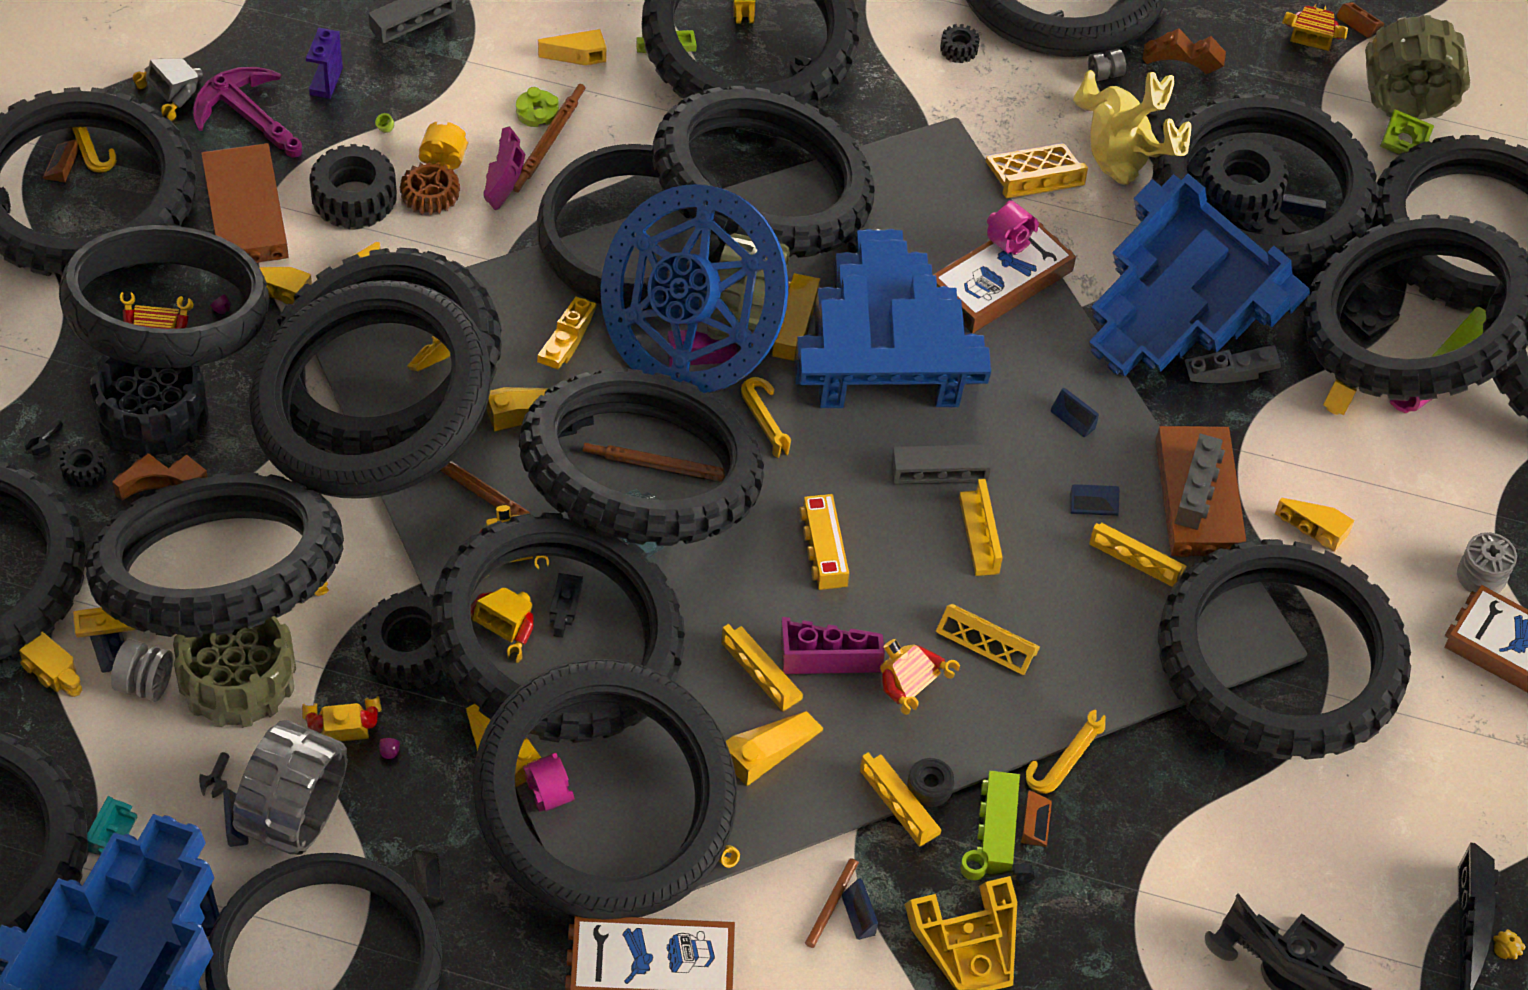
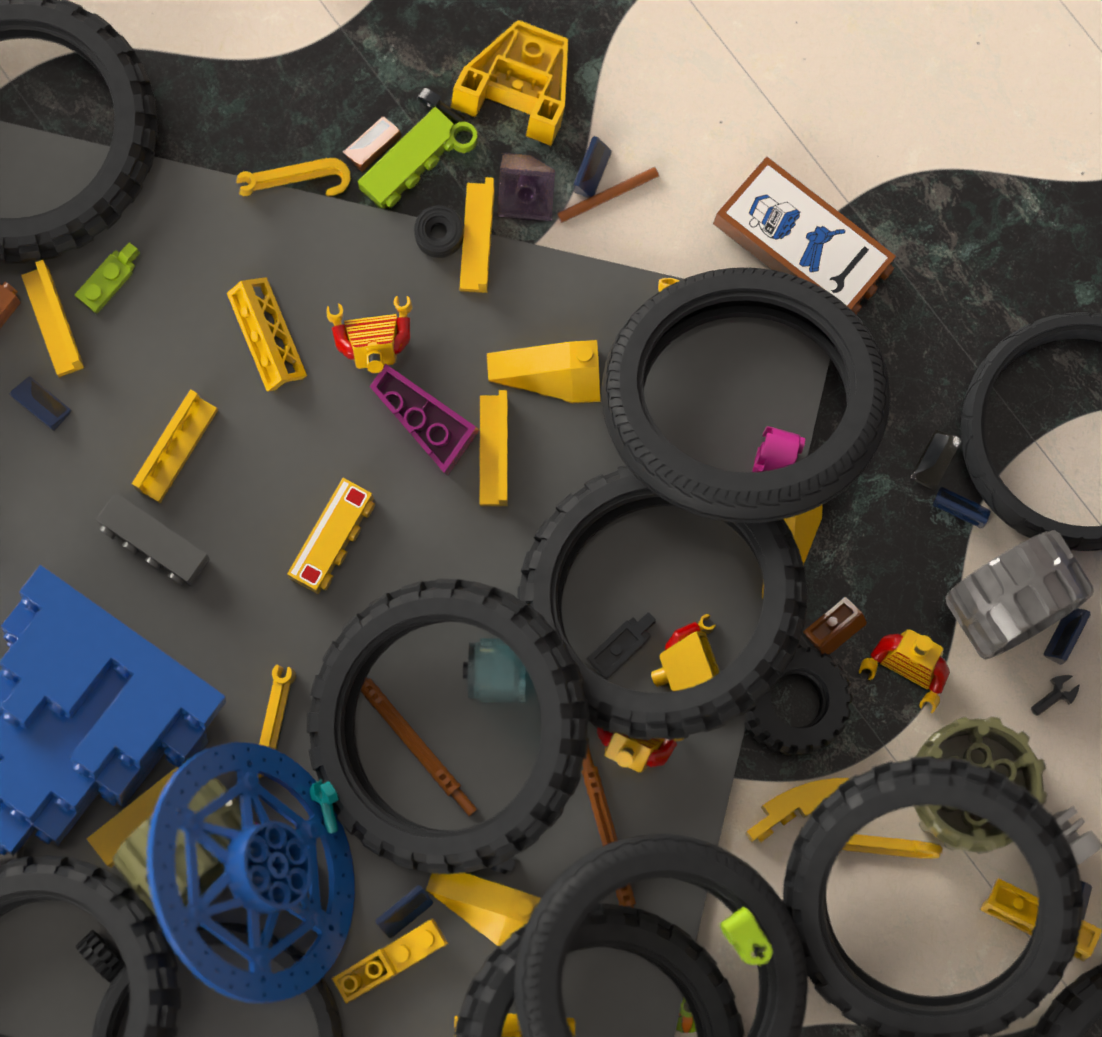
camera: 135 degrees left, 25 degrees up
(331, 433) = (744, 933): none -> lime piece
(361, 590) = (782, 807): none -> yellow slope
(388, 852) = (961, 507): none -> dark blue slope
(389, 747) = (884, 611): magenta hinge -> none
(419, 718) = (835, 626): none -> dark orange slope
(584, 360) = (404, 911): none -> dark blue slope
(684, 377) = (325, 795): none -> teal bar
(900, 857) = (525, 188): none -> slope
(1128, 603) = (108, 278): none -> lime hinge

